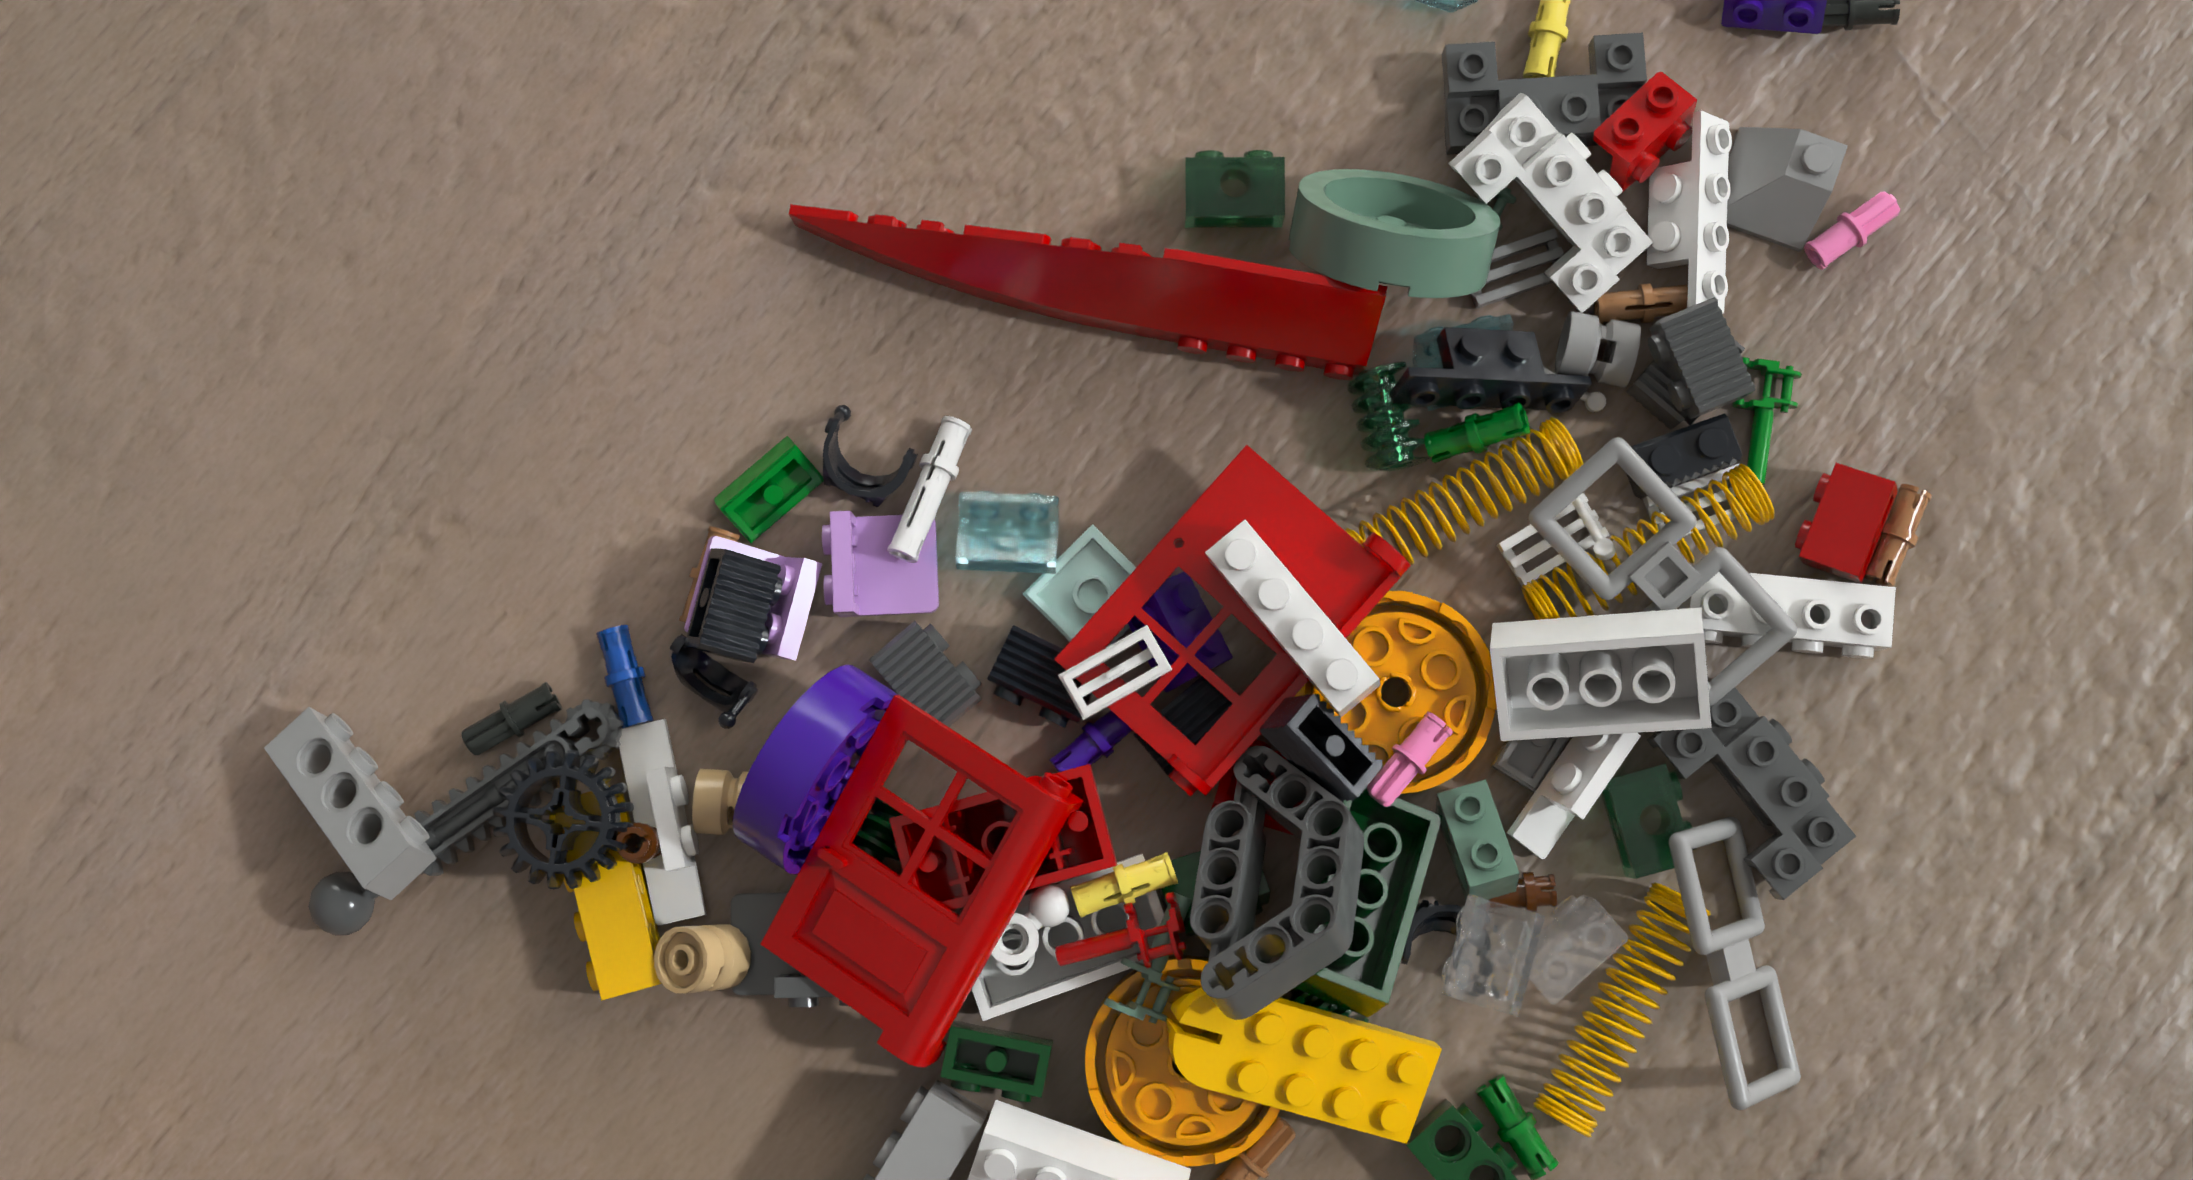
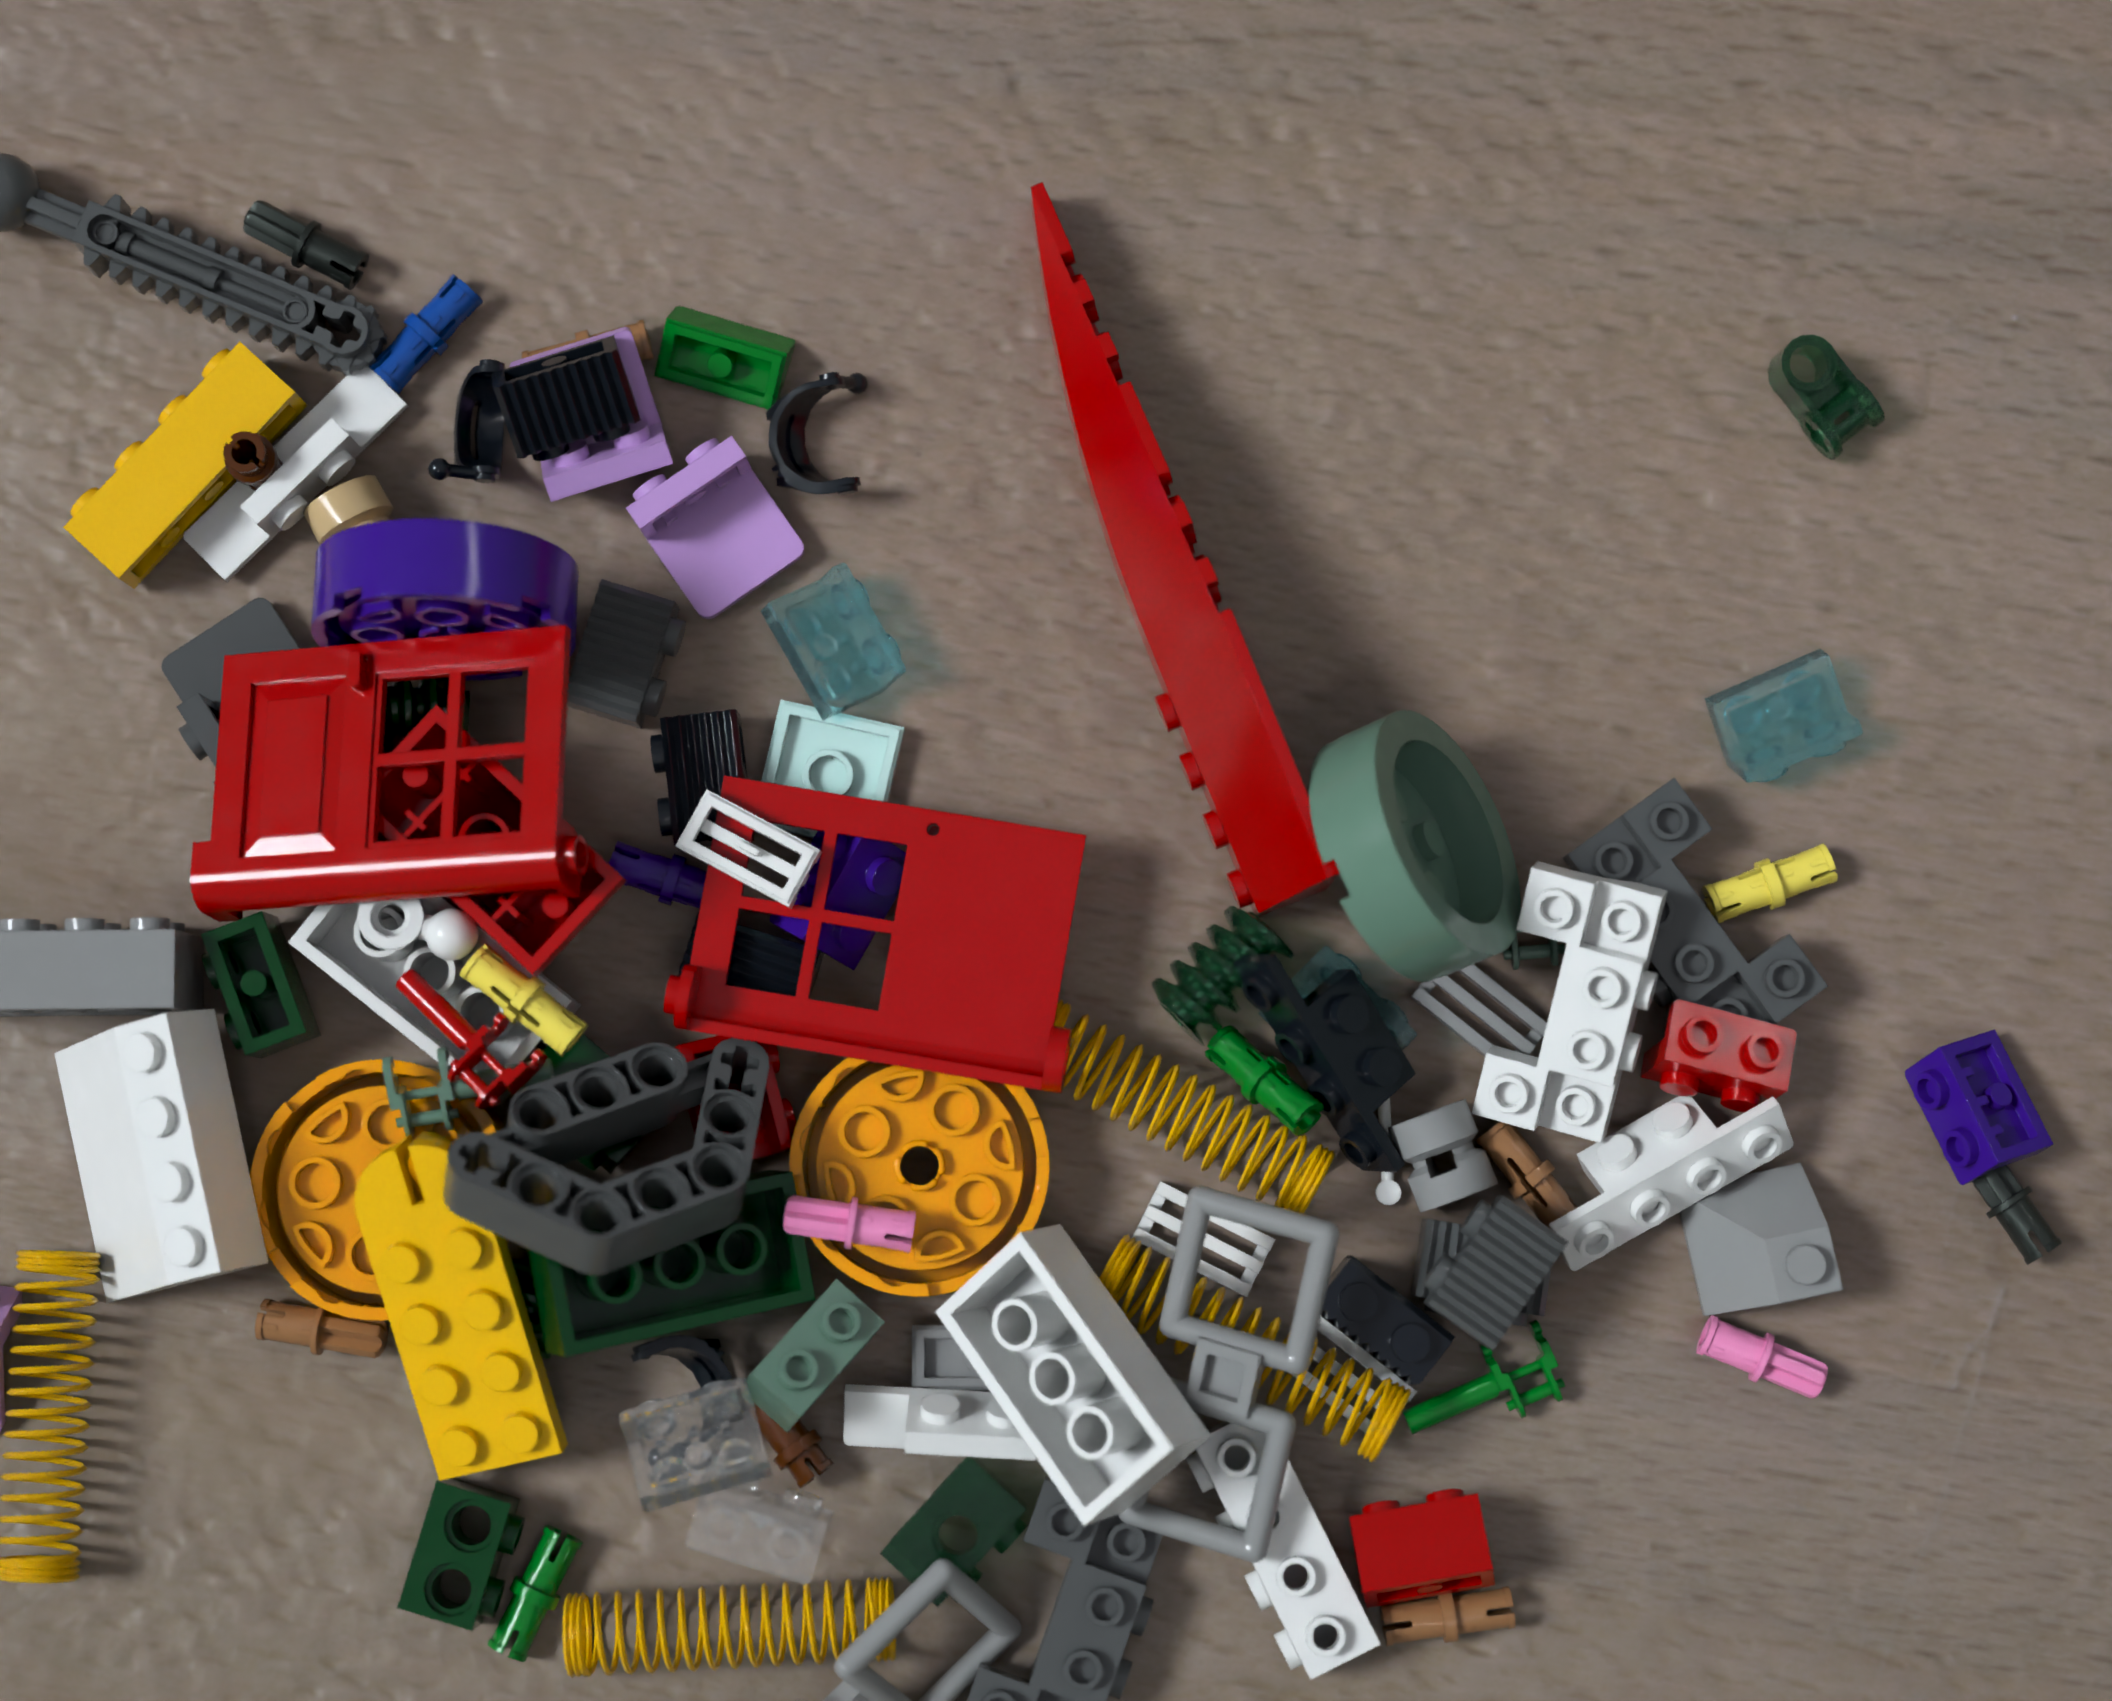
camera: 50 degrees right, 0 degrees up
(351, 802) = (108, 133): light grey brick -> none
(519, 815) = (202, 371): black gear -> none
(702, 958) = (174, 605): tan wheel -> none
(937, 471) = (840, 526): white pin -> none
(1211, 208) = (1369, 687): clear green brick -> none
(1293, 618) = (919, 999): white brick -> none
(1321, 746) = (799, 1117): black brick -> none
(1603, 546) = (1218, 1292): white hinge -> none

